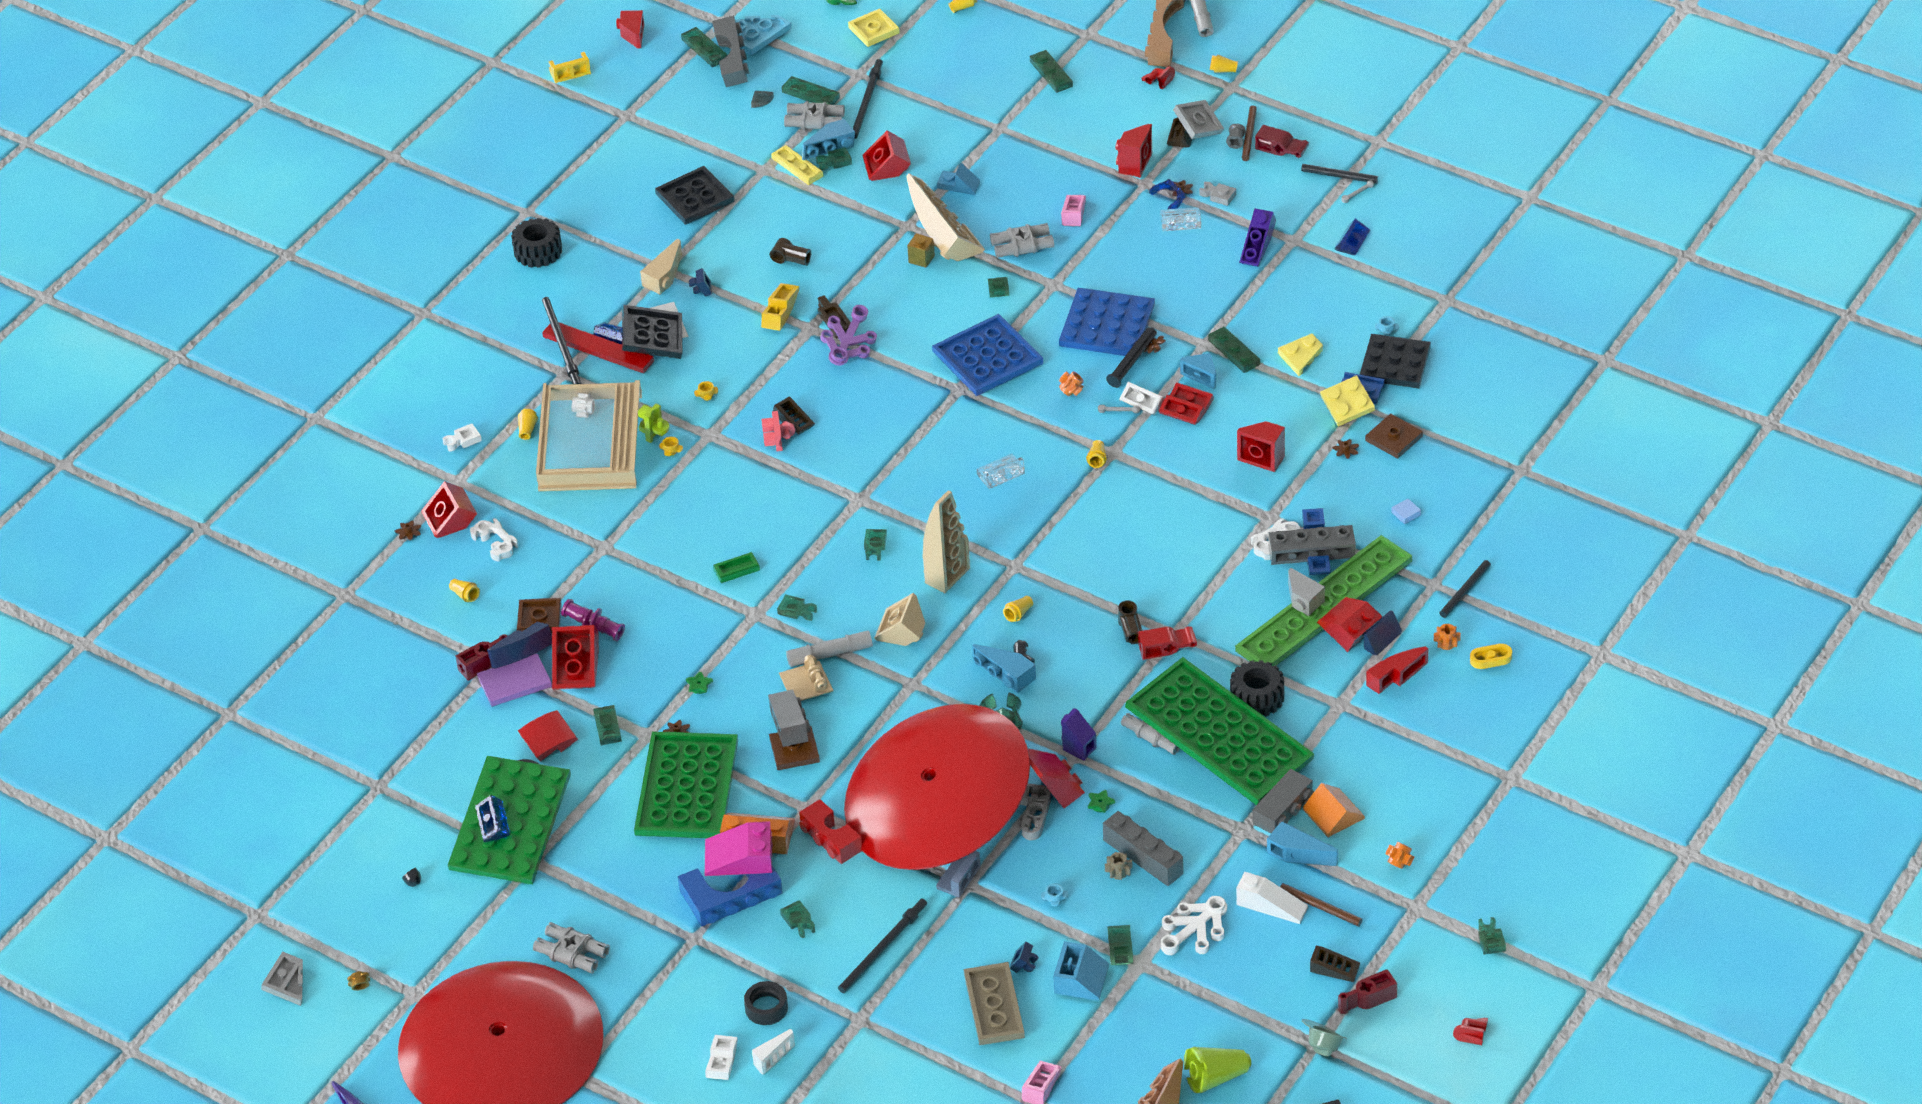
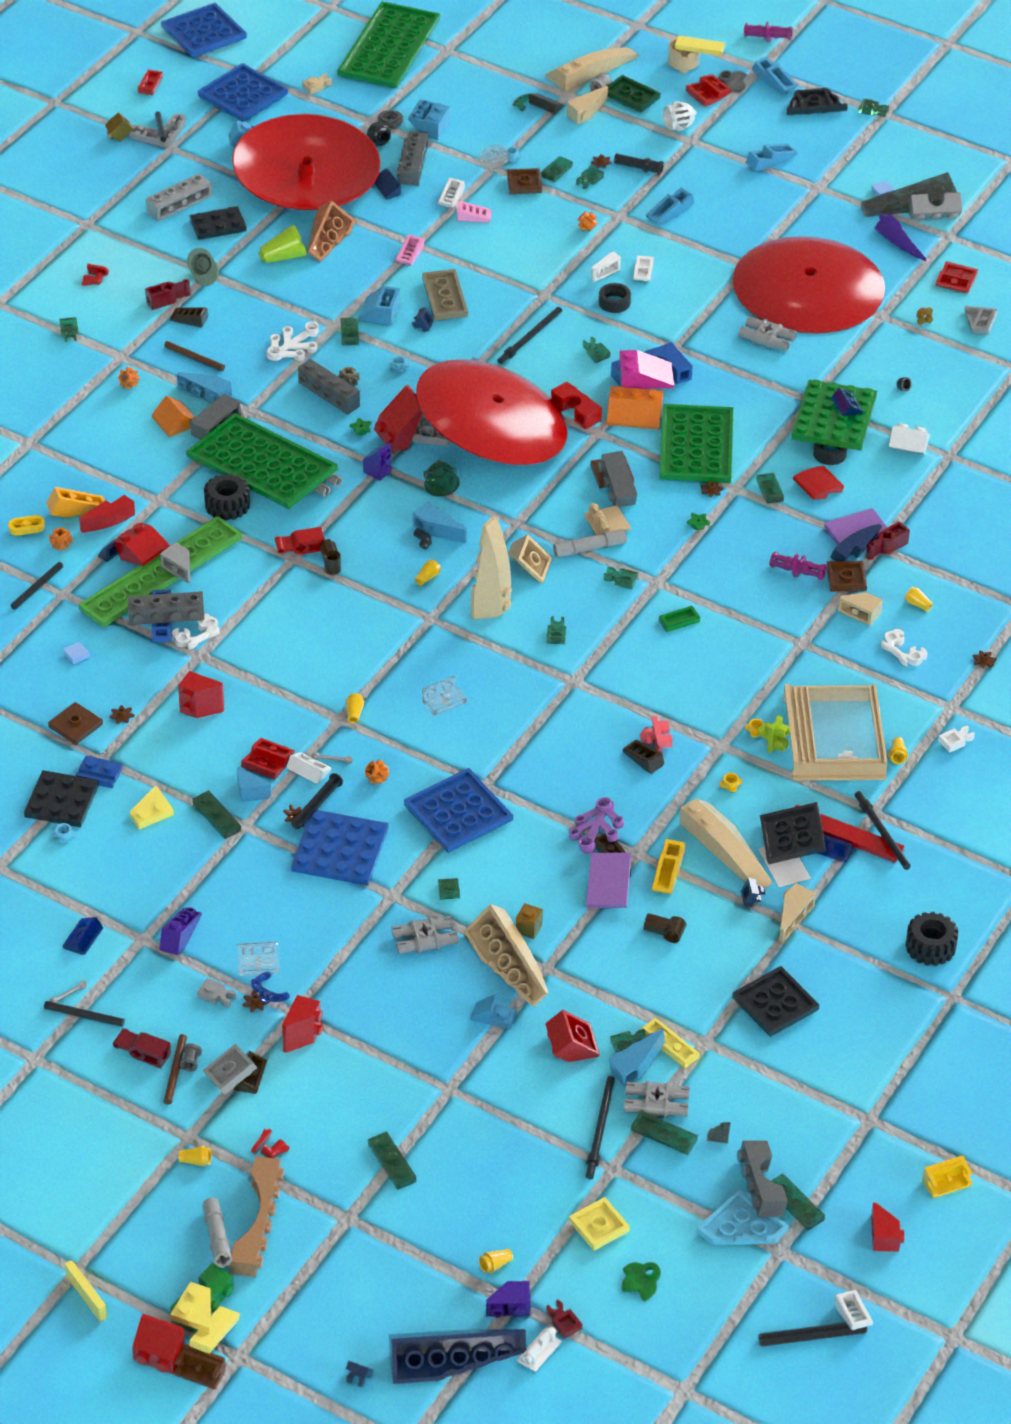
camera: 175 degrees right, 0 degrees up
(298, 1052) = (957, 277): none -> red slope
(424, 792) = (909, 439): none -> white slope
(448, 510) = (948, 666): red slope -> none
(530, 576) = (861, 607): none -> tan slope
(574, 657) = (808, 539): red slope -> none
(723, 334) = (722, 840): none -> tan wedge
(840, 286) = (608, 880): none -> medium lavender tile
(1073, 210) = (370, 961): bright pink slope -> none
(1268, 898) = (235, 354): white slope -> none
(1347, 401) = (114, 748): light yellow plate -> none
(1437, 681) = (71, 503): none -> light orange slope

